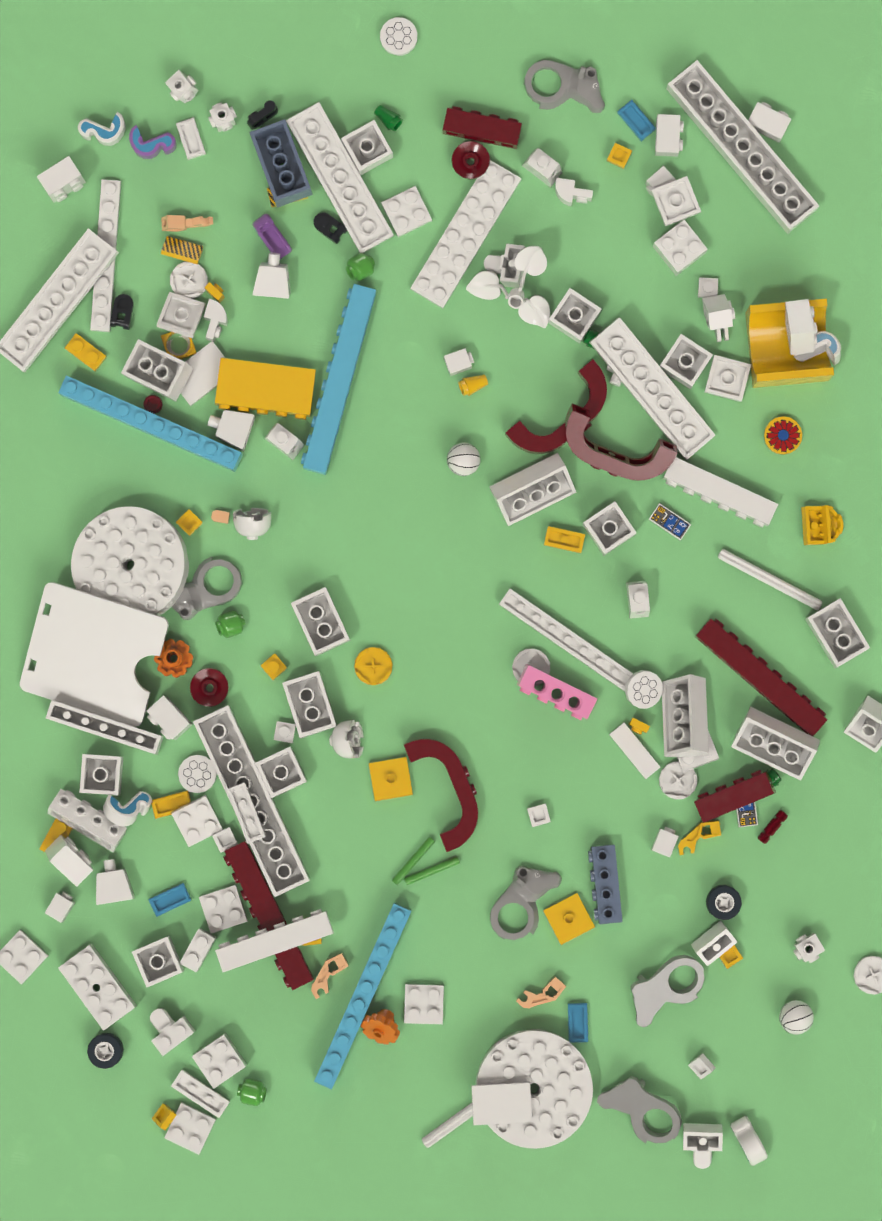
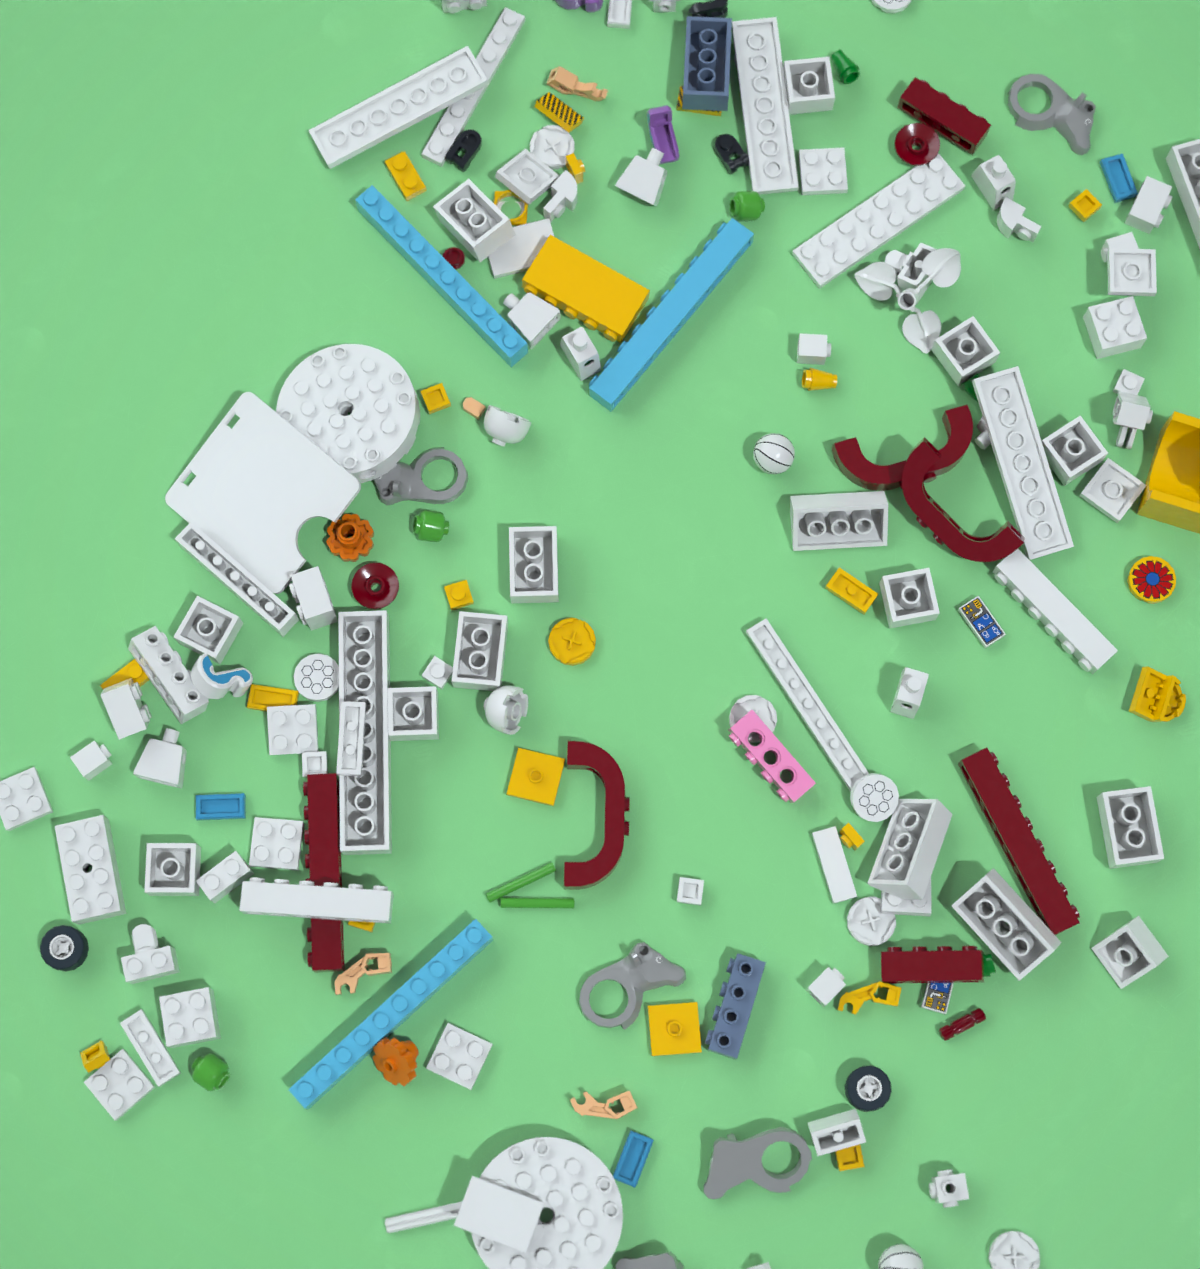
camera: 20 degrees right, 10 degrees down
(770, 579) = (1073, 734): white axle -> none

